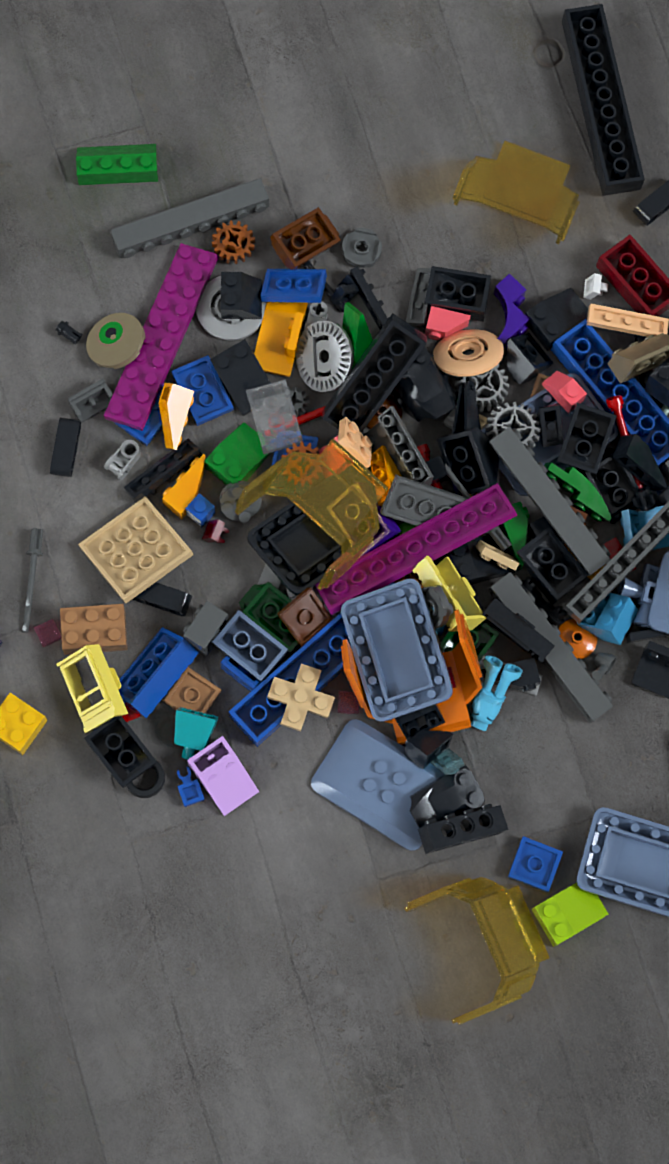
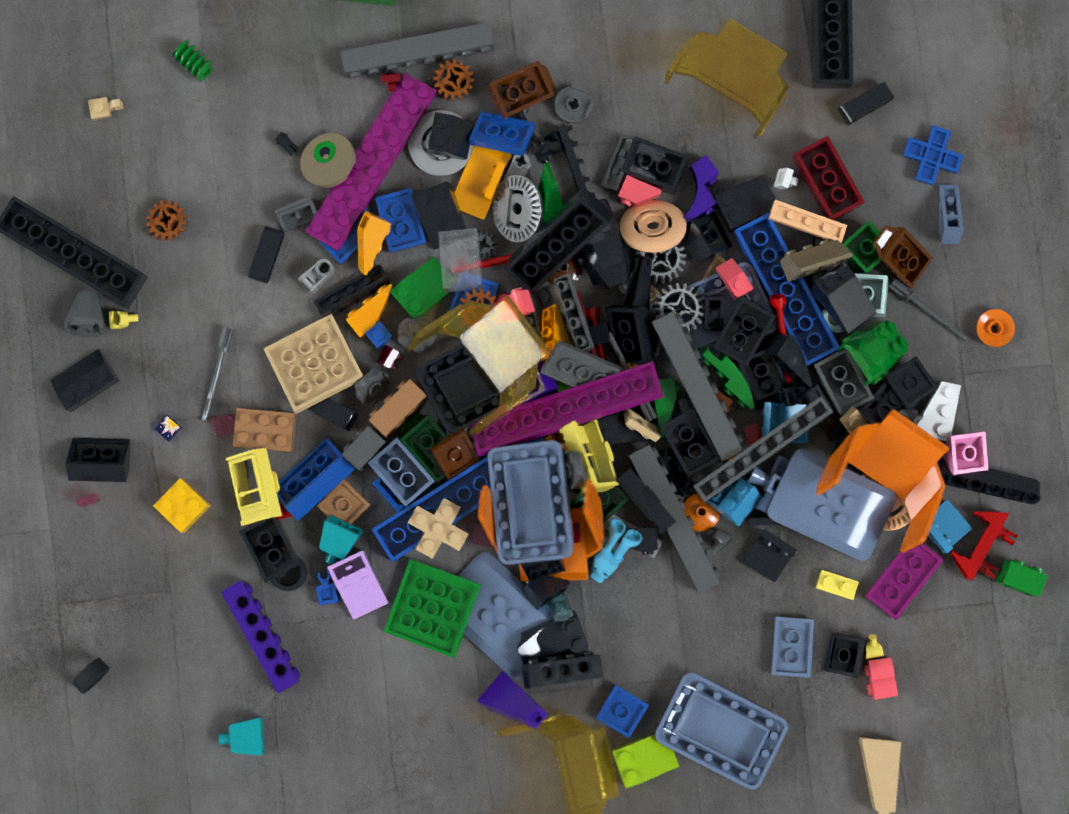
camera: 15 degrees right, 10 degrees up
(87, 811) = (251, 631): none -> dark purple brick
(125, 965) = (245, 737): none -> teal torso
(168, 251) = (391, 78): none -> dark red tile
(203, 553) = (372, 386): none -> dark grey plate
(235, 579) = (397, 408): none -> medium nougat brick
(309, 787) = (432, 608): none -> green plate
(354, 441) = (529, 299): light nougat plate -> none
(416, 871) = (512, 701): none -> dark purple slope

